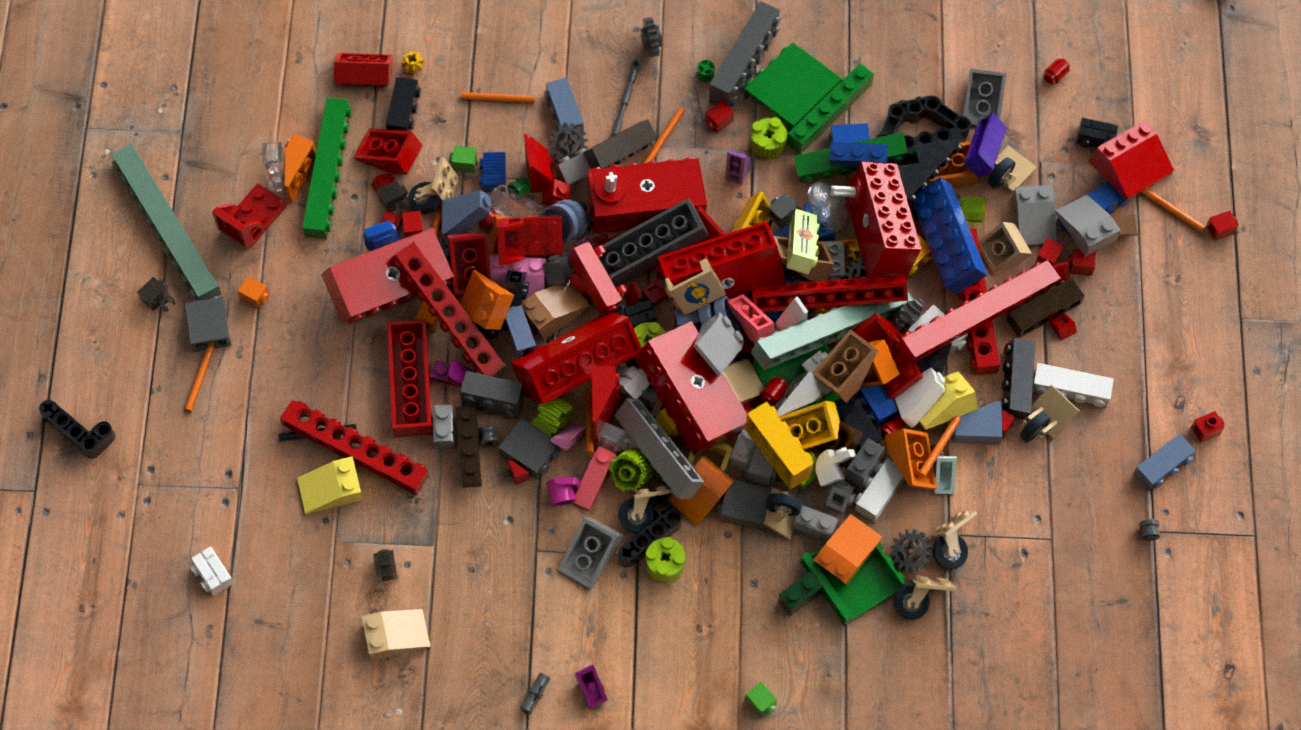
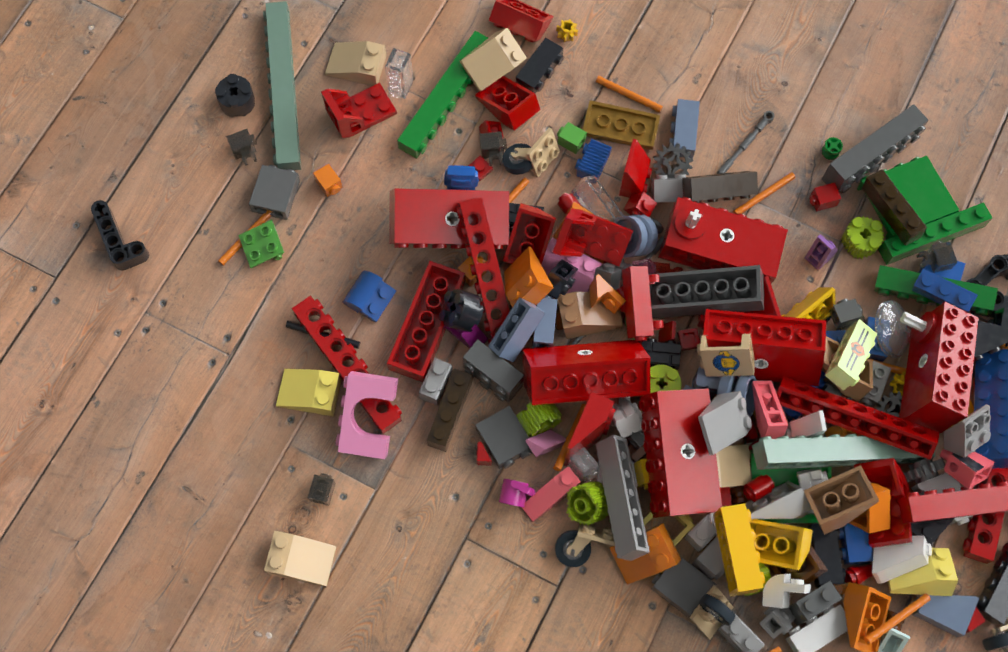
camera: 25 degrees right, 5 degrees up
(125, 252) = (235, 95): none -> black brick
(211, 571) = (166, 423): white brick -> none
(219, 375) = (261, 244): none -> bright green hinge
(225, 172) = (357, 62): none -> tan slope
(299, 163) = (420, 81): orange slope -> none
(344, 378) = (369, 295): none -> blue brick
(357, 116) = (493, 59): none -> tan slope
(391, 508) = (352, 438): none -> bright pink arch
(412, 223) = (497, 178): red brick -> none
(439, 351) = (461, 310): none -> black brick
(464, 212) = (548, 187): sand blue slope -> none
(488, 436) = (472, 408): dark grey wheel -> none
(497, 346) = (516, 329): none -> sand blue brick
(503, 128) = (621, 124): none -> pearl gold plate
(521, 185) = (611, 185): green wheel -> none
(561, 283) = (603, 292): none -> orange slope
(590, 551) = (514, 564): light grey slope -> none
(646, 535) = (574, 572): black beam -> none
(651, 37) = (794, 96): dark grey gear -> none
(666, 549) = (587, 596): lime brick -> none
(783, 99) = (894, 207): none -> dark brown brick
(841, 126) = (939, 256): none -> clear smoke brick
(930, 263) = (969, 433): none -> light grey slope
(941, 293) = (968, 469): none -> coral torso

